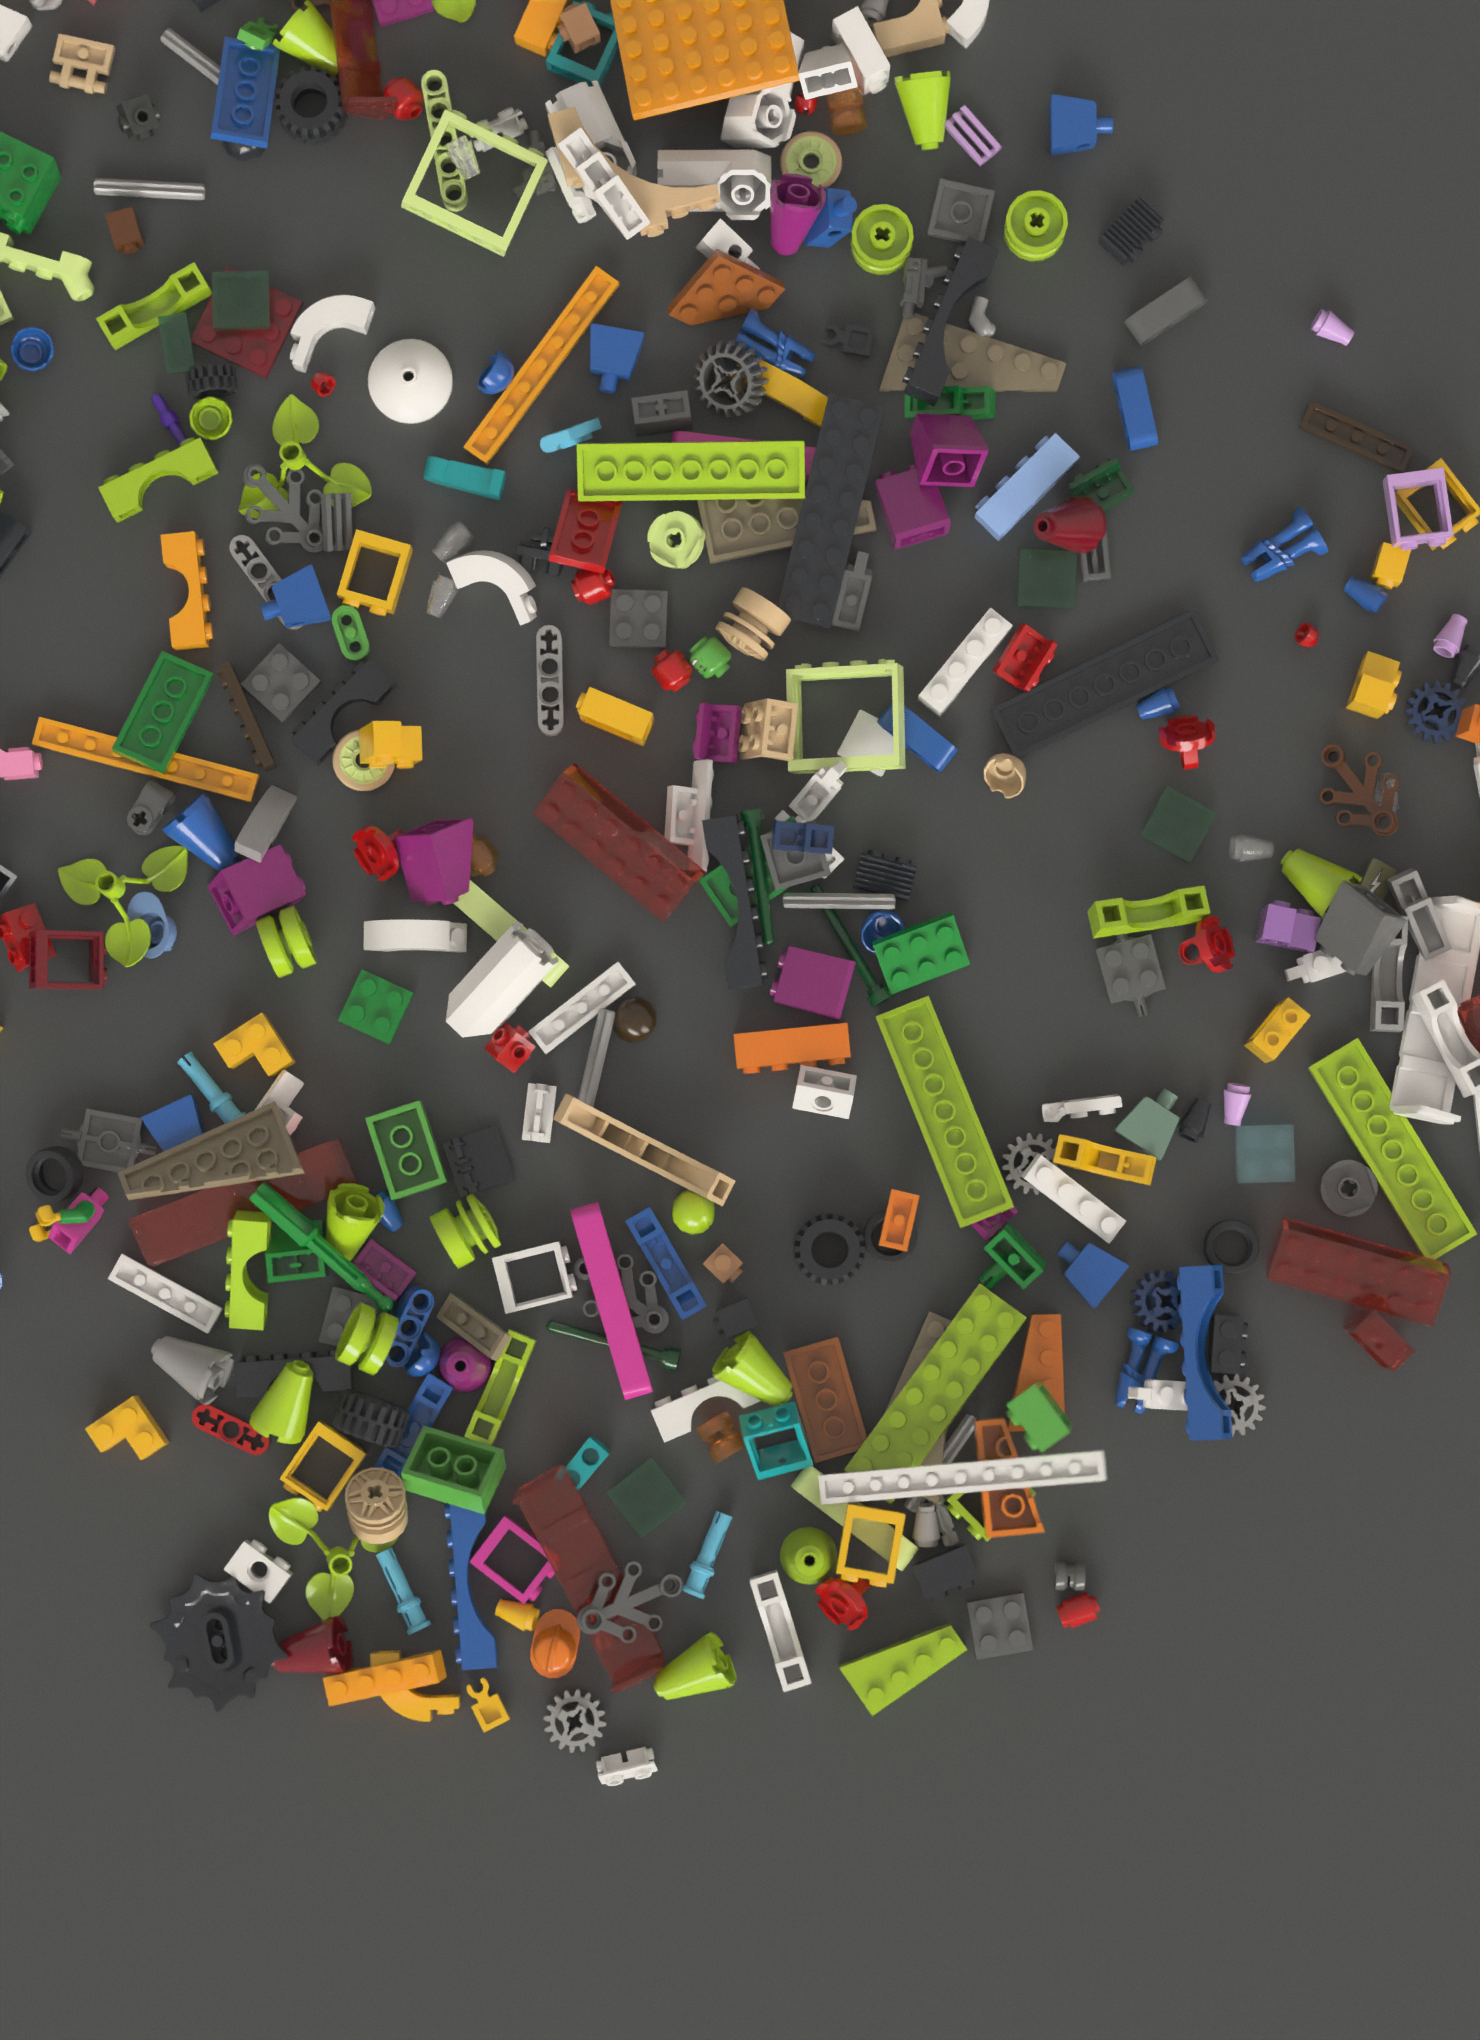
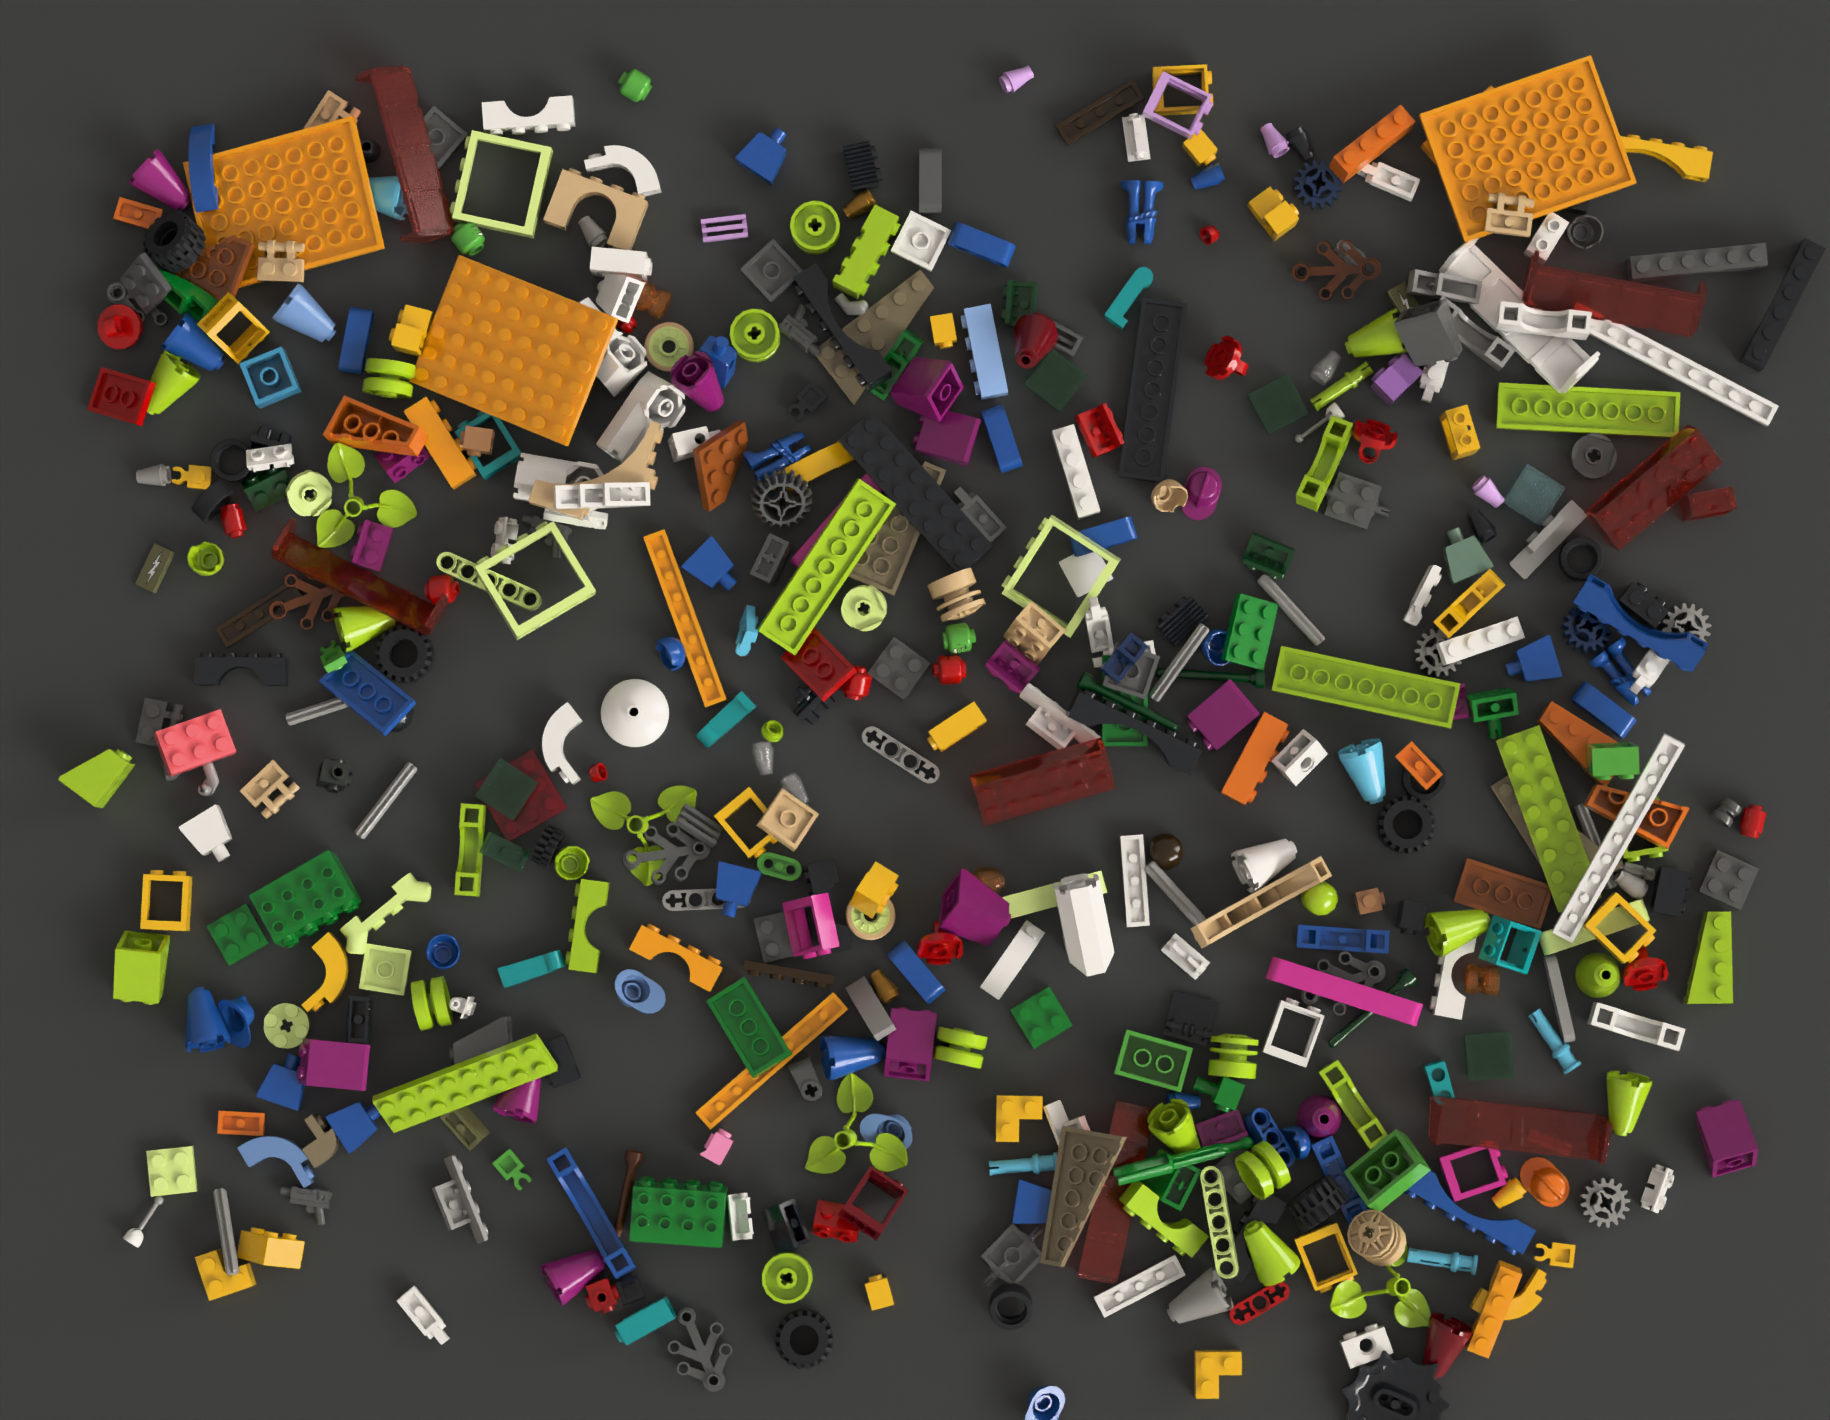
camera: 55 degrees left, 0 degrees up
(71, 1223) = (1054, 1315): torso -> none
(74, 450) = (531, 968): none -> teal leg
(124, 575) = (639, 992): none -> medium blue piece
(125, 230) = (404, 835): reddish brown brick -> none
(169, 418) = (552, 891): dark purple bar -> none
(290, 1317) = (1225, 1232): none -> yellowish green beam
(298, 823) = (884, 987): none -> pearl gold cone
(307, 685) = (799, 930): none -> dark pink window
(335, 846) = (916, 972): none -> blue beam
(402, 606) = (787, 819): none -> tan tile
(421, 1246) = (1224, 1093): none -> green brick
(463, 156) = (515, 576): clear cone -> none
(474, 1326) = (1300, 1094): dark tan plate -> none
(485, 532) = (772, 731): none -> lime plate
(503, 572) = (804, 739): white arch -> none
(510, 1046) = (1129, 945): red brick -> none
(624, 1604) = (1550, 1116): dark grey plant -> none
(690, 1127) = (1262, 862): none -> white cone
(727, 1803) = (1726, 1138): none -> magenta slope
(756, 1531) = (1559, 998): none -> light grey beam
(859, 1168) = (1366, 768): none -> medium azure cone
(925, 105) = (684, 246): lime cone -> none
(947, 563) = (1001, 438): none -> blue beam
(973, 981) = (1291, 609): none -> light grey axle
(1012, 919) = (1267, 556): none -> dark green bracket
(1019, 428) = (943, 330): none -> yellow brick
(1033, 809) = (1203, 493): none -> magenta piece
(1045, 295) = (866, 252): none -> lime wedge
(1089, 1376) = (1603, 710): none -> blue beam
(1091, 256) = (860, 204): none -> pearl gold cone
(1096, 344) = (921, 241): none -> white plate
(1158, 704) = (1189, 363): blue cone -> none
(1209, 595) = (1139, 280): none -> teal leg
(1211, 885) = (1333, 410): none -> hinge
(1228, 1198) = (1548, 539): none -> light grey bracket
(1242, 877) = (1341, 386): none -> lime pin
(1355, 492) = (1136, 137): none -> white hinge

